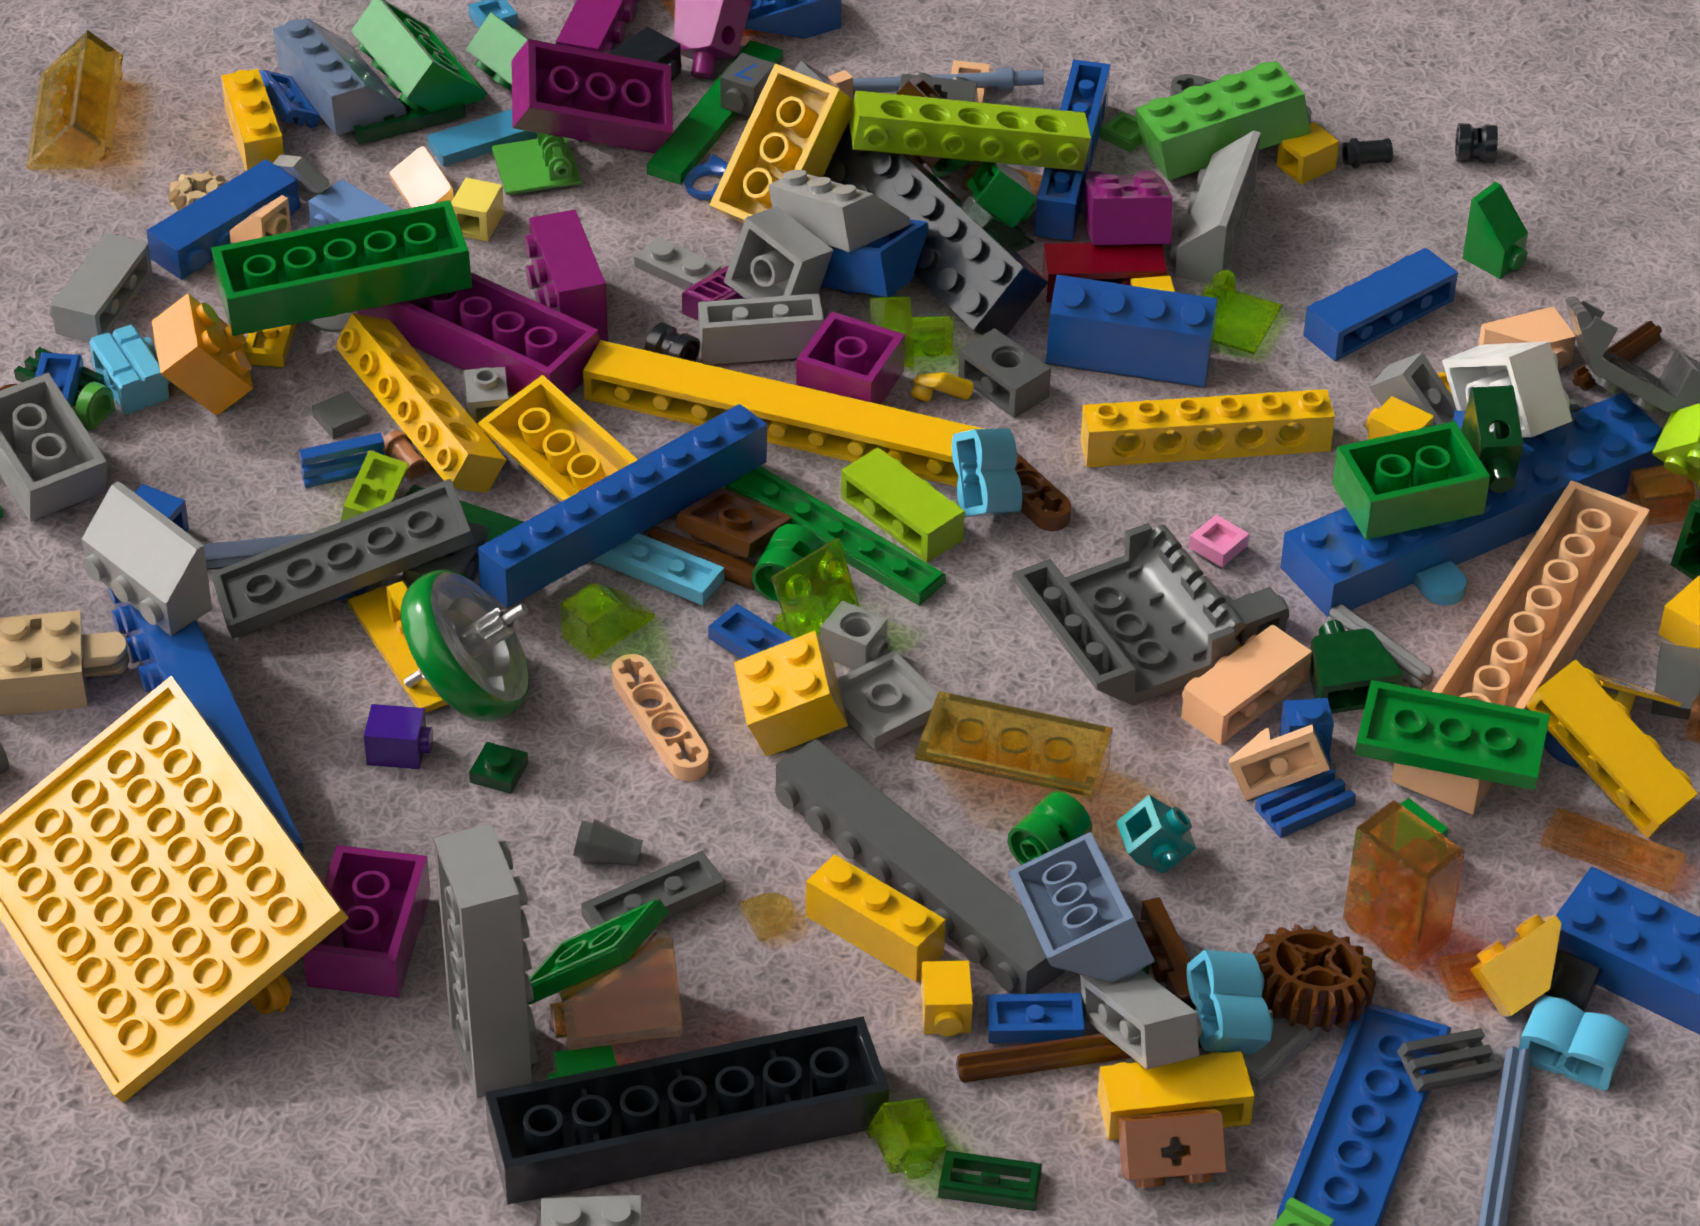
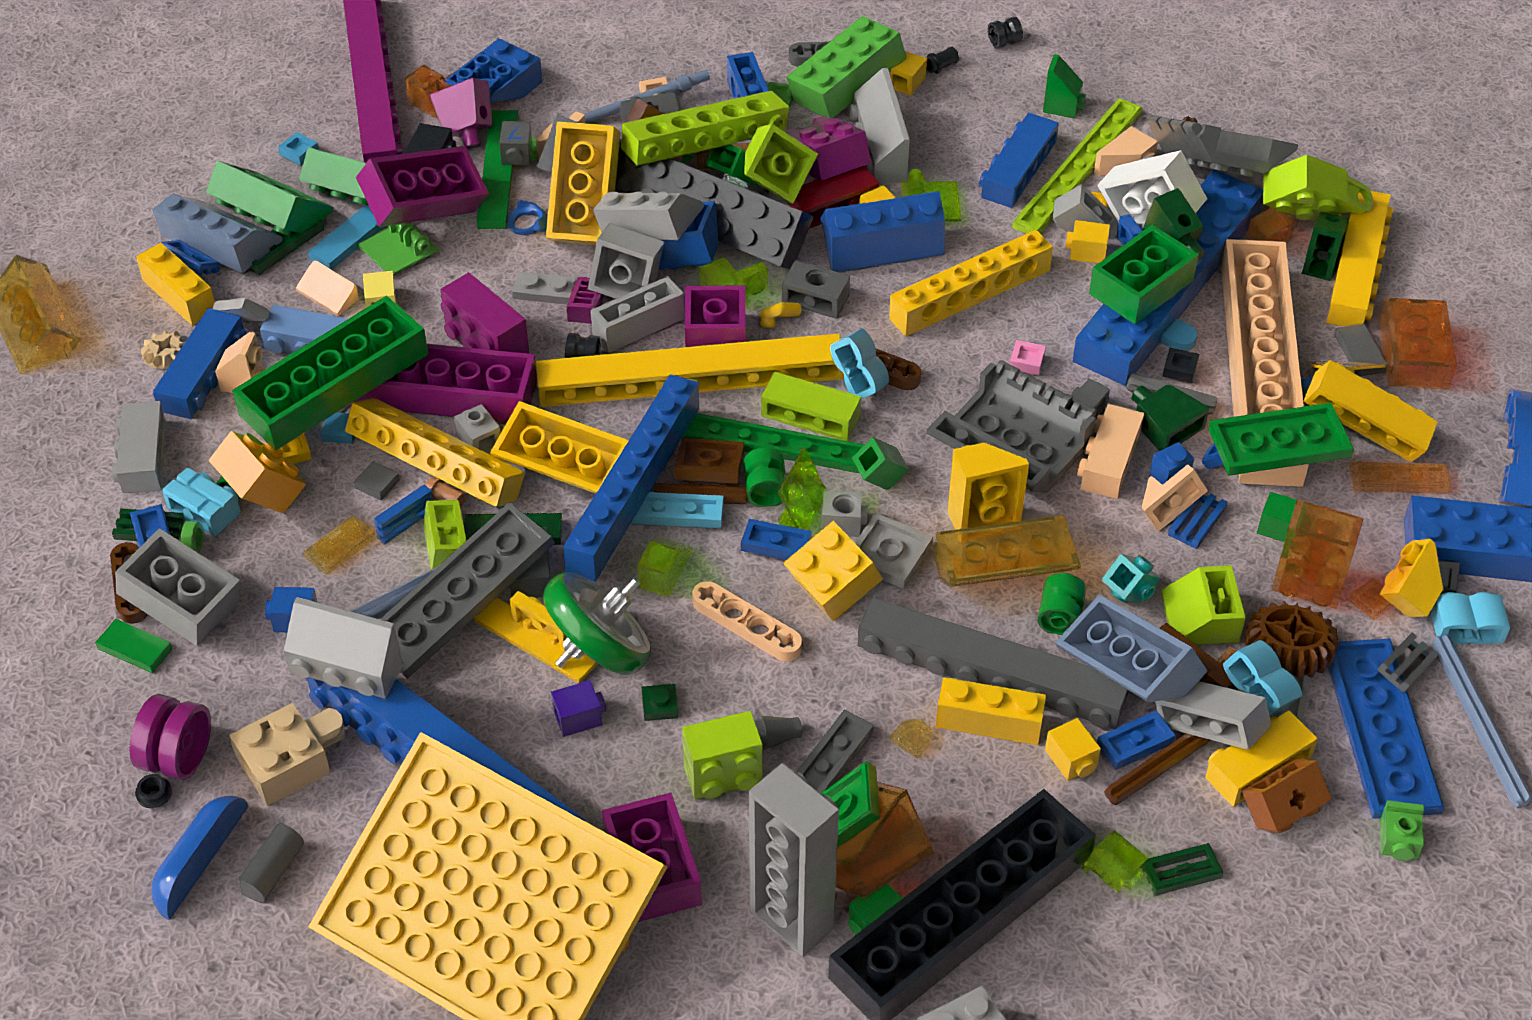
camera: 25 degrees left, 5 degrees up
(253, 469) = (339, 544): none -> clear yellow plate
(324, 342) = (334, 429): none -> dark azure tile
(535, 832) = (722, 755): none -> lime brick
(937, 596) = (880, 463): none -> green brick
(1033, 657) = (986, 486): none -> yellow slope
(1036, 202) = (778, 162): none -> lime slope
(1229, 900) = (1205, 606): none -> lime slope
(1353, 380) = (1077, 166): none -> lime tile
(1414, 616) = (1180, 365): none -> black plate

